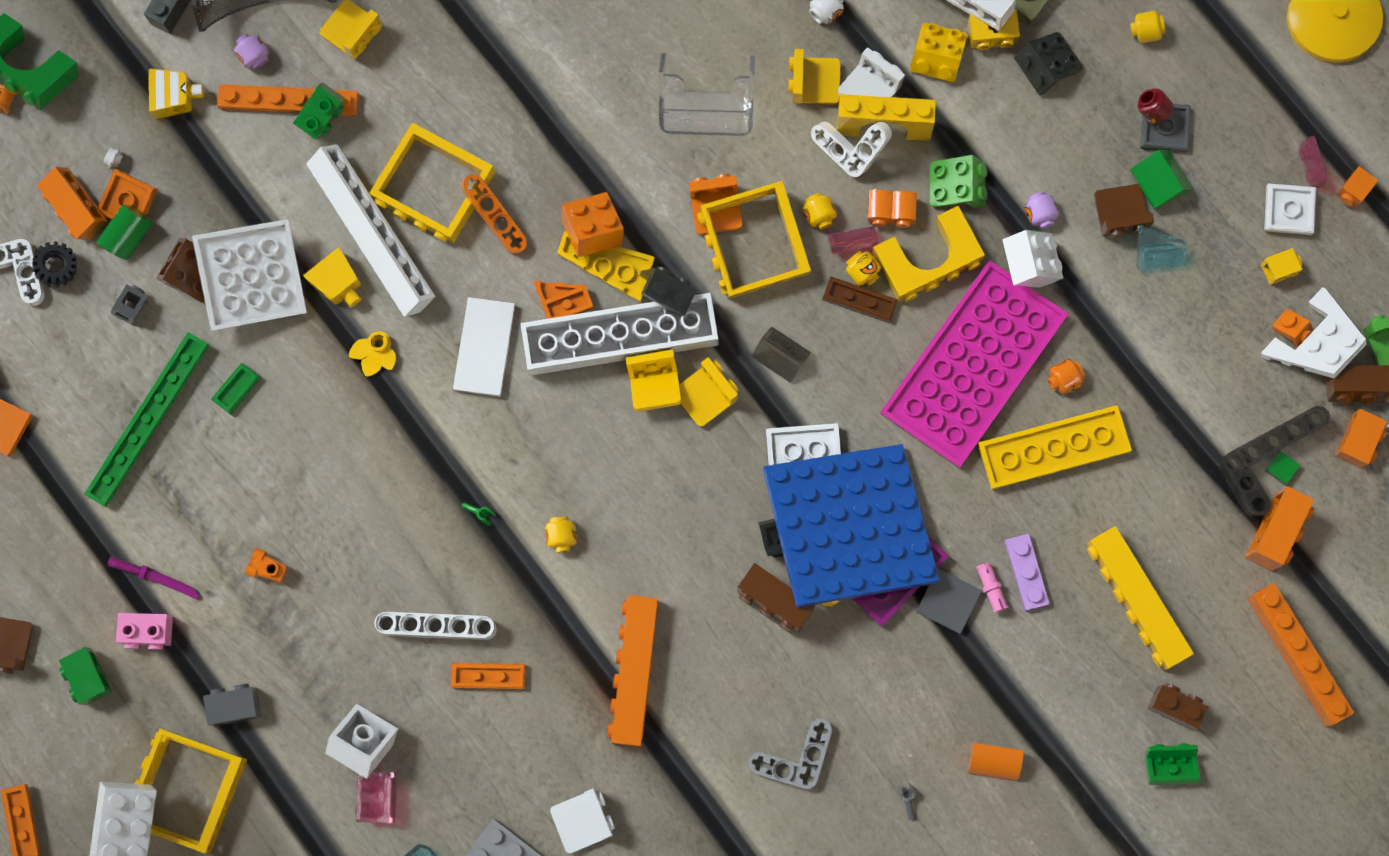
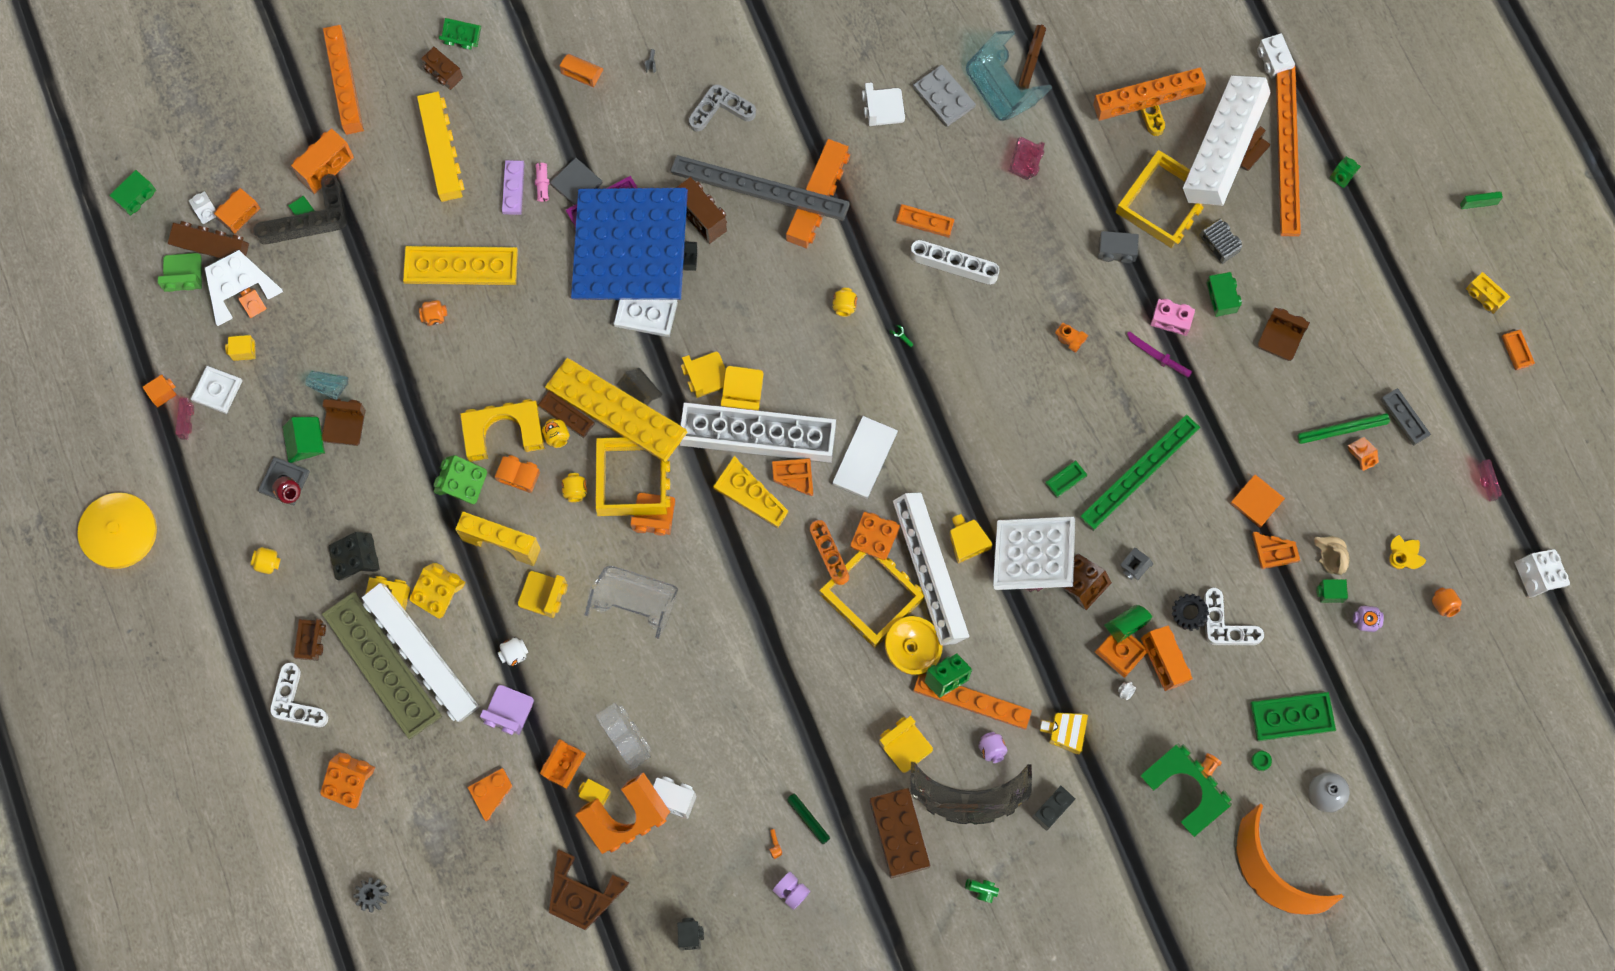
camera: 170 degrees left, 5 degrees down
(101, 752) = (1221, 240): none -> dark grey brick
(359, 125) = (921, 637): none -> yellow dish
(361, 741) = (1027, 193): white brick -> none
(374, 357) = (953, 473): yellow plate -> none
(444, 249) = (875, 535): none -> orange bracket
(592, 224) = (754, 520): orange brick -> none
(667, 290) = (710, 447): pearl dark grey bracket -> none
(708, 650) = (760, 188): none -> dark grey plate
(799, 312) = (616, 409): none -> yellow plate
(851, 153) = (536, 521): white beam -> none
(852, 240) = (556, 458): clear pink plate -> none
(873, 77) = (500, 575): white bracket -> none
(973, 364) = (497, 341): dark pink plate -> none
(1033, 258) = (425, 398): white brick -> none
(1041, 210) = (403, 440): lavender head -> none

